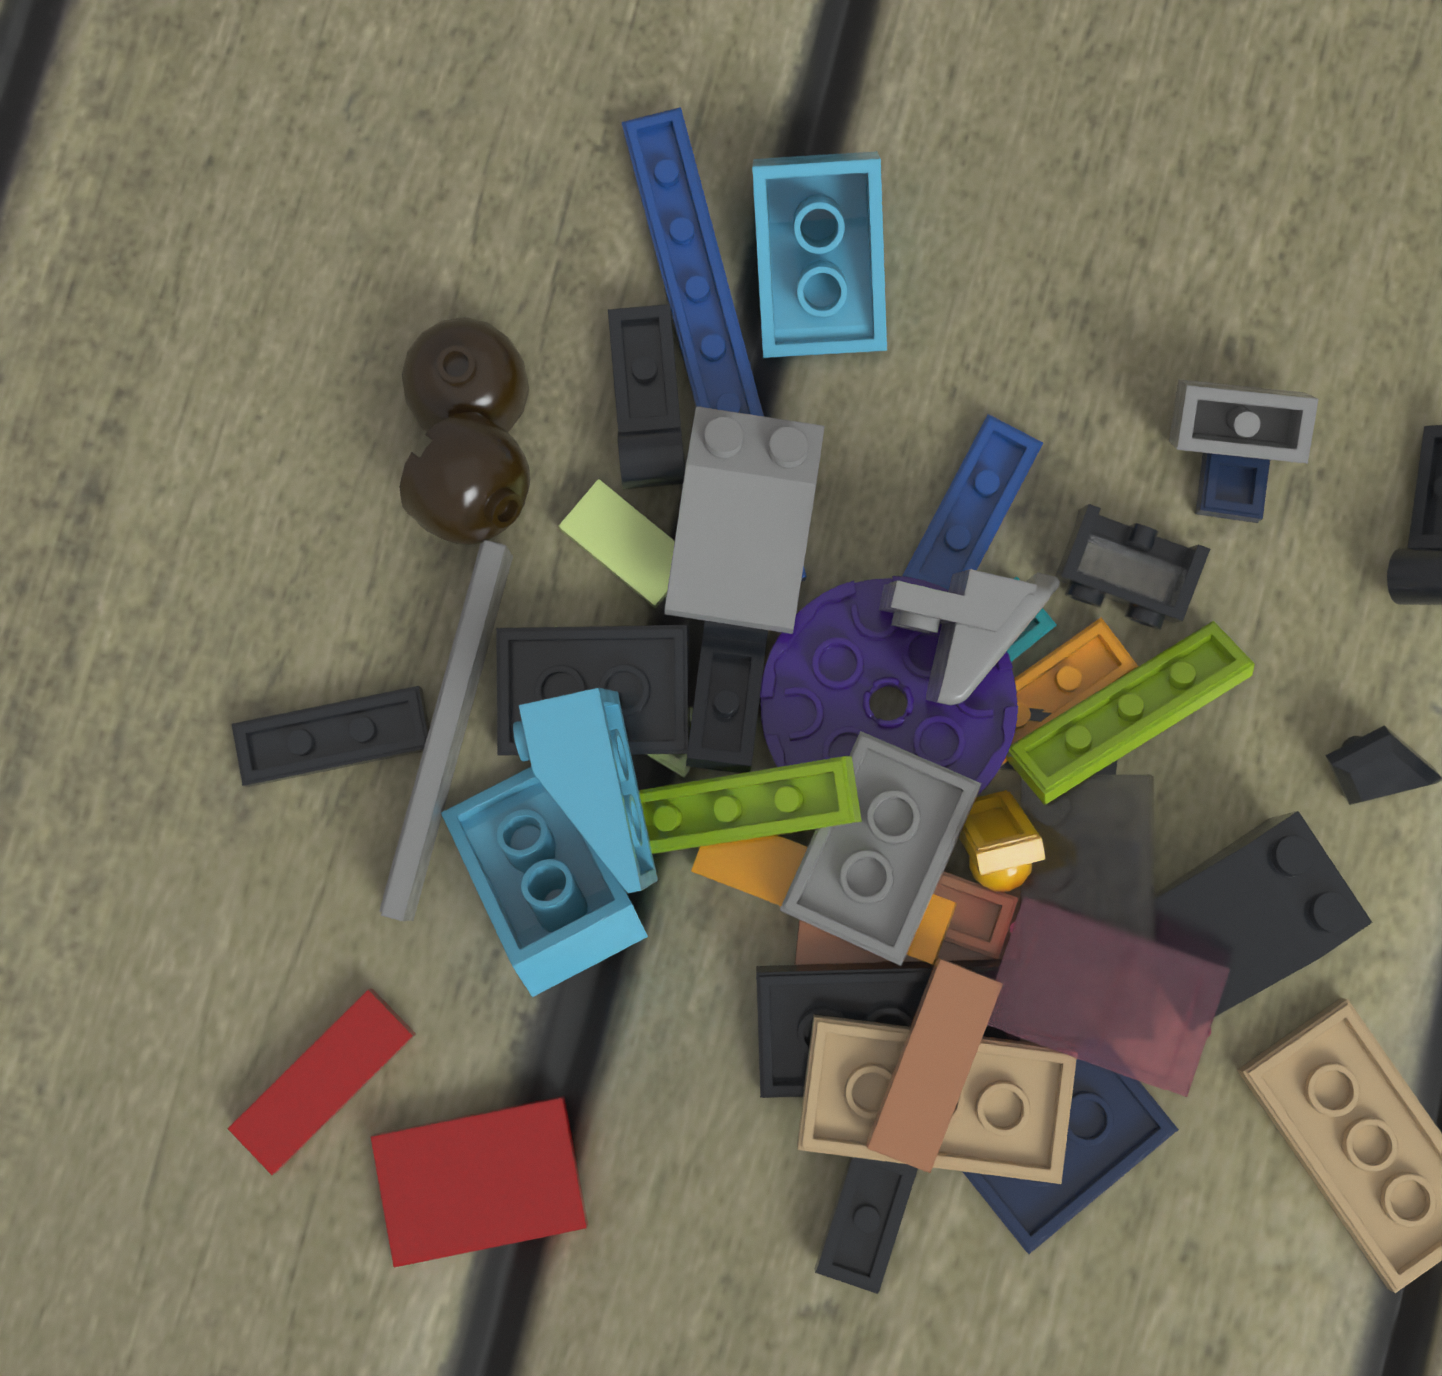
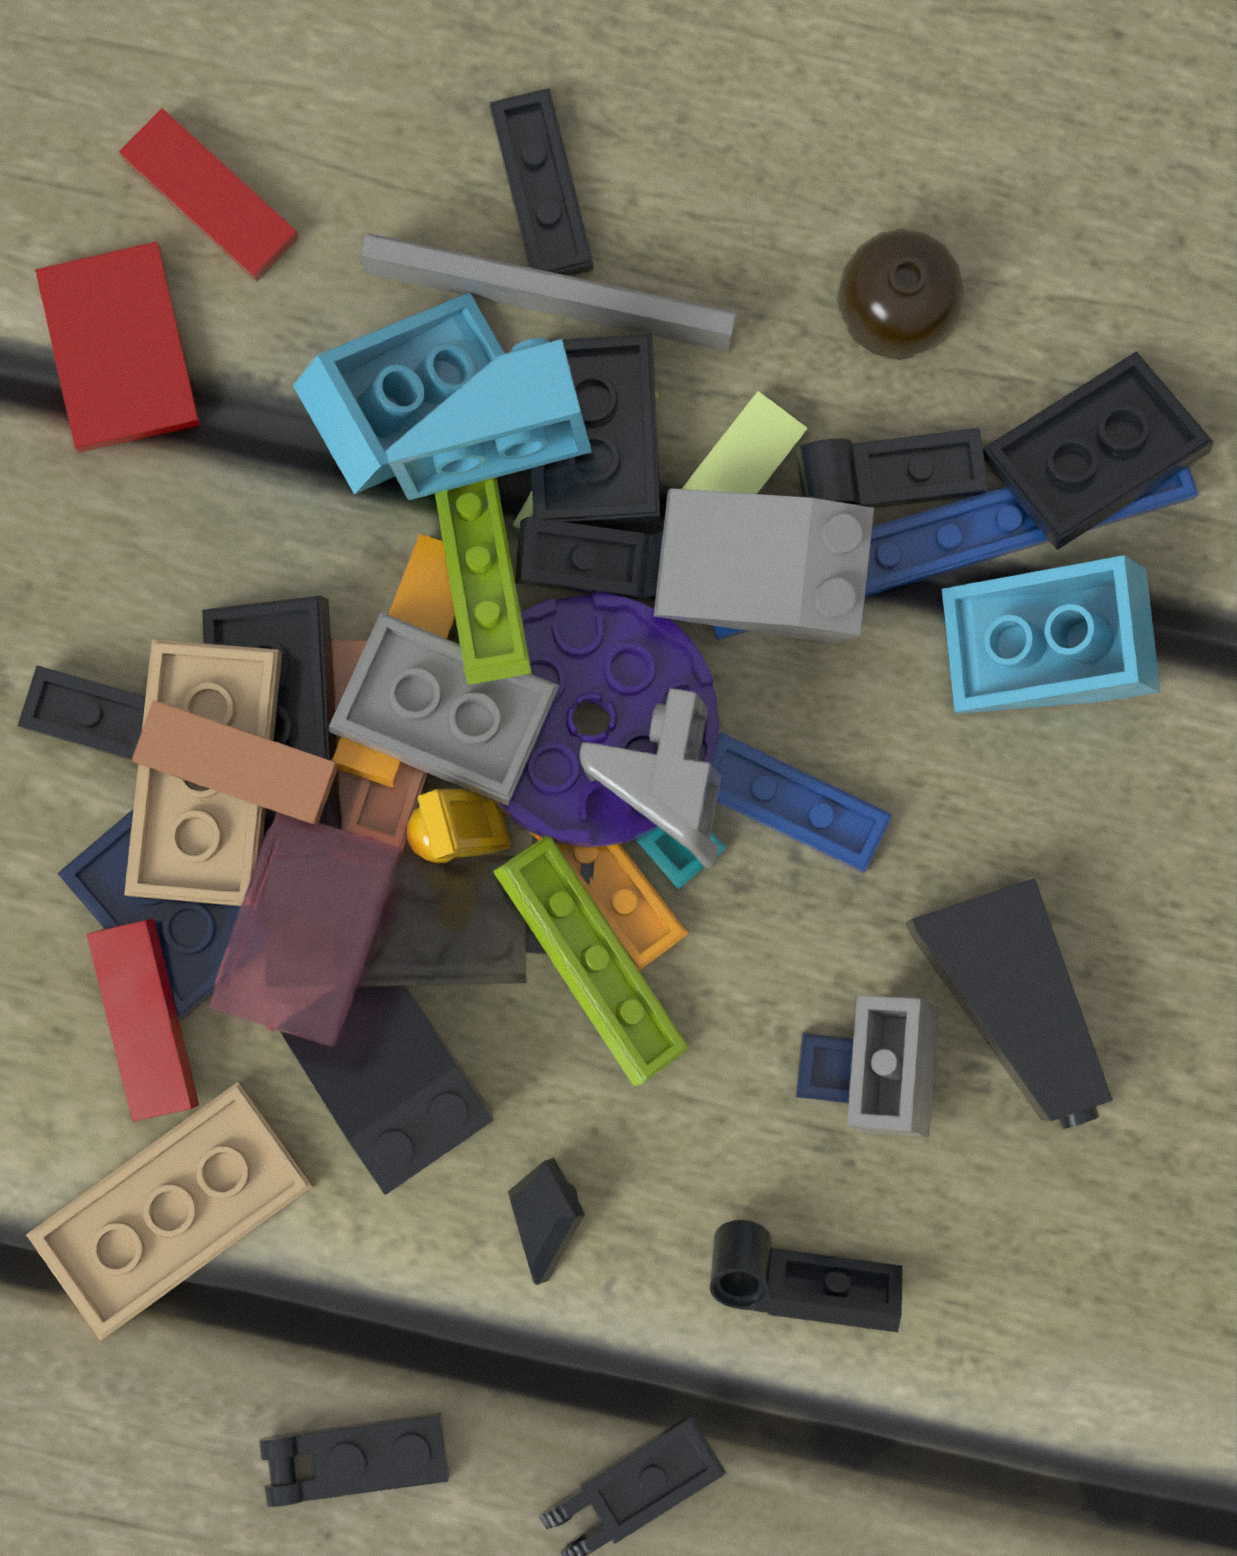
camera: 85 degrees right, 0 degrees up
(466, 480) = (794, 293): dark brown cylinder -> none
(634, 198) = (1097, 450): none -> black tile
(1130, 568) = (739, 957): black window -> none
(1162, 302) = (1017, 992): none -> black slope
(1181, 1168) = (143, 1019): none -> tile

